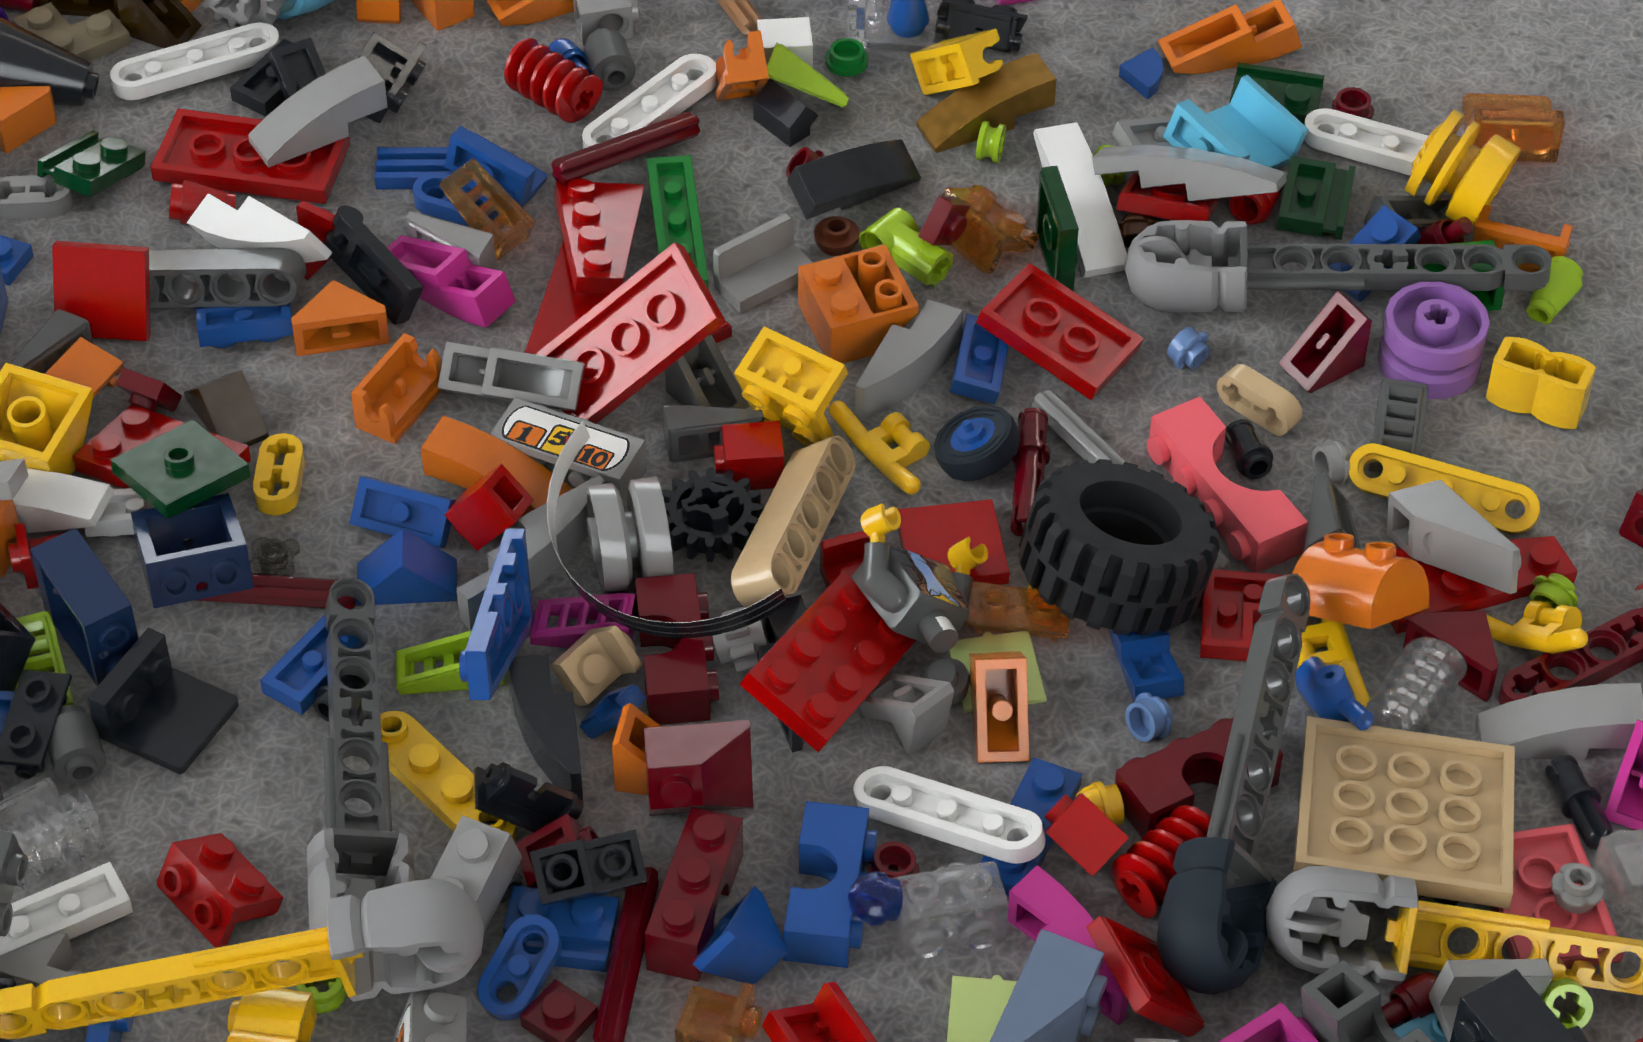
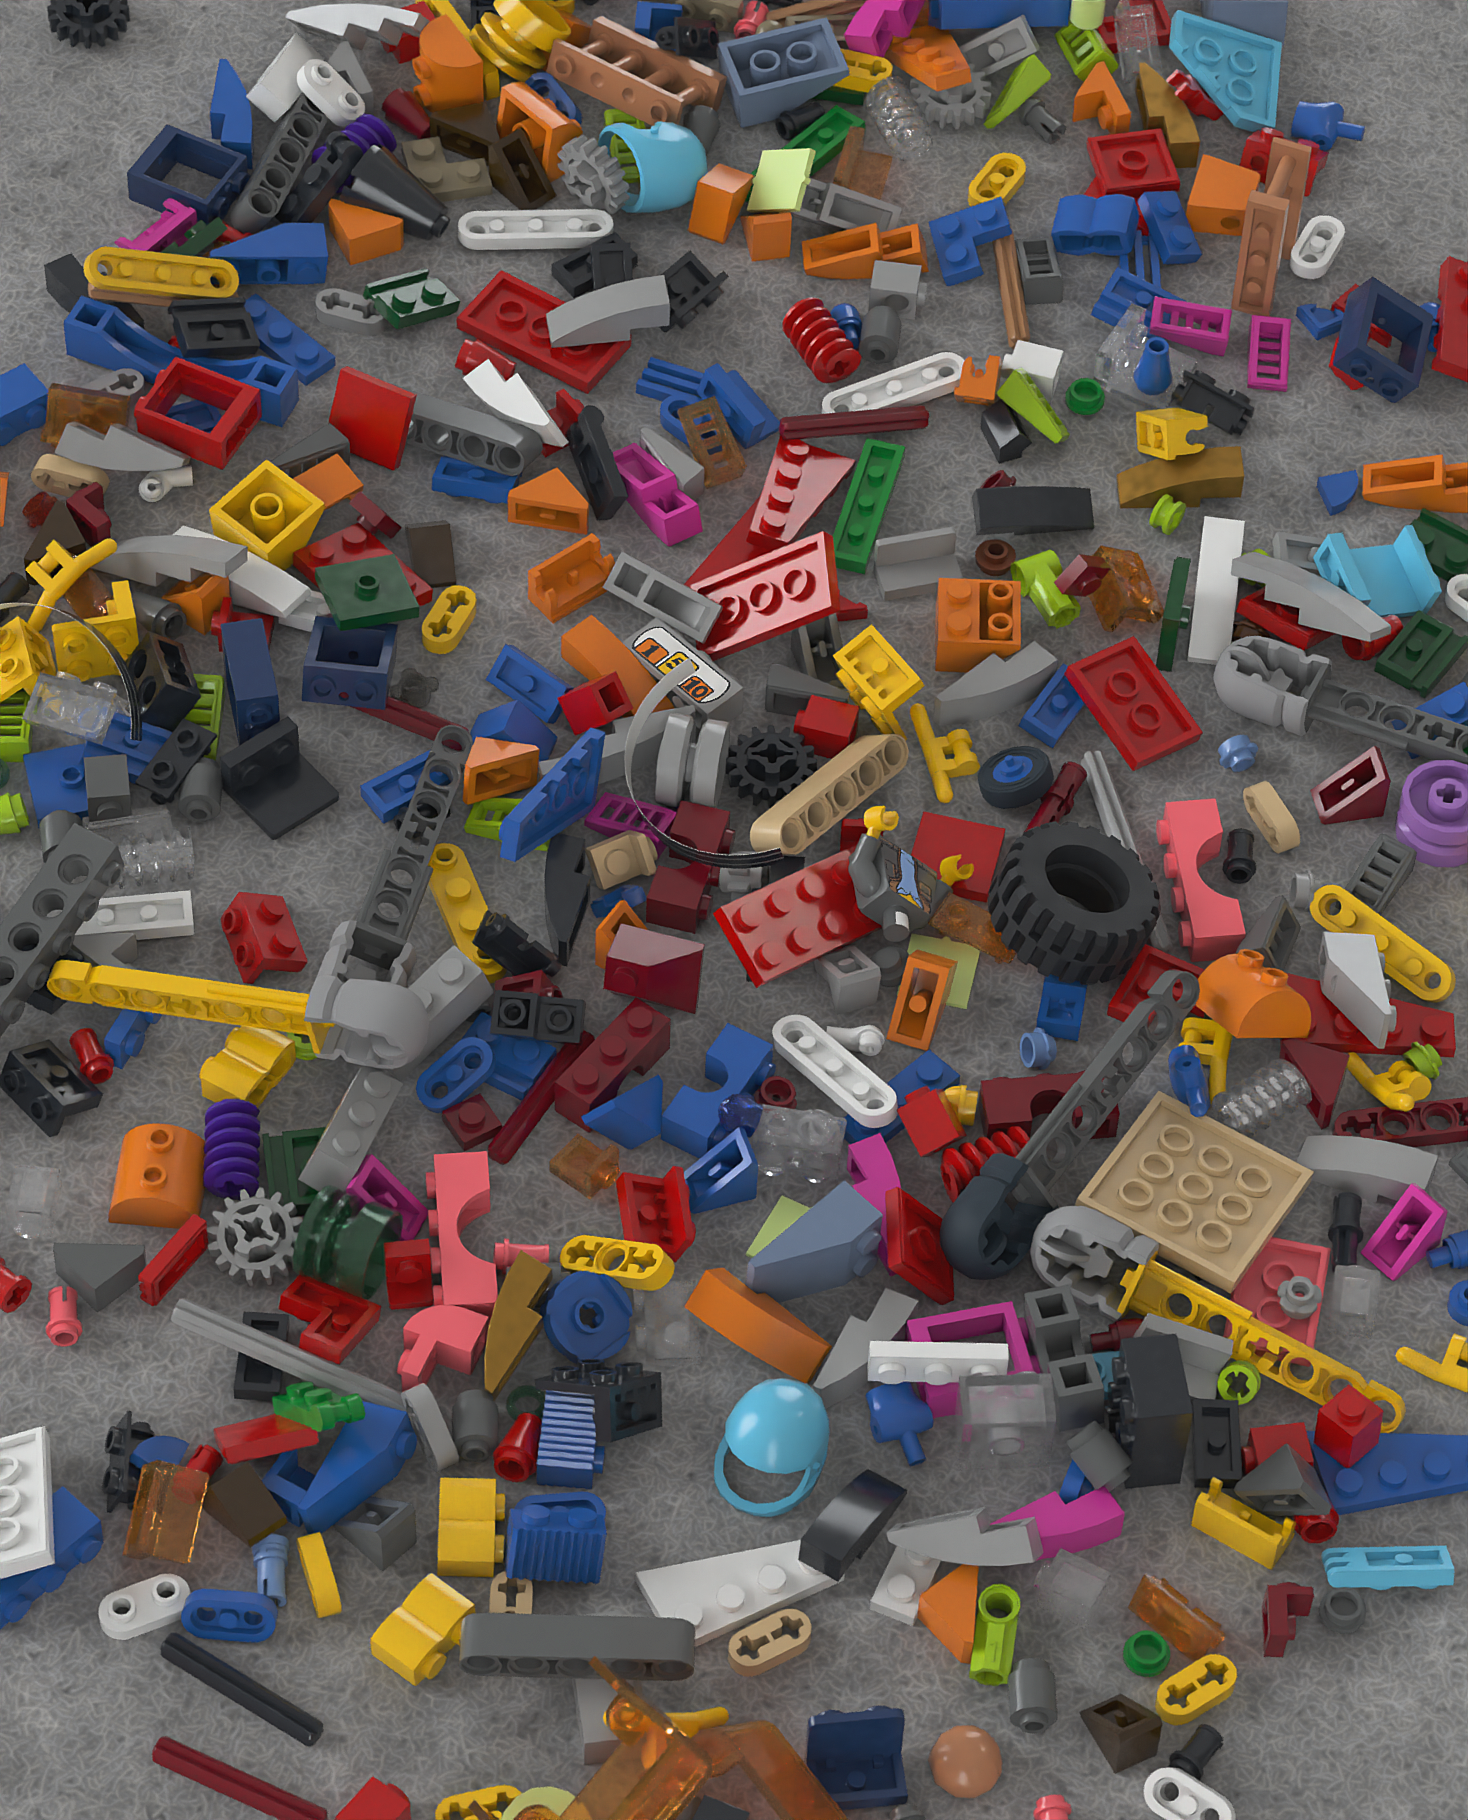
camera: 20 degrees right, 5 degrees up
(412, 611) = (499, 769): none -> orange slope
(884, 970) = (723, 1174): none -> blue slope
(958, 770) = (861, 1039): none -> white arm

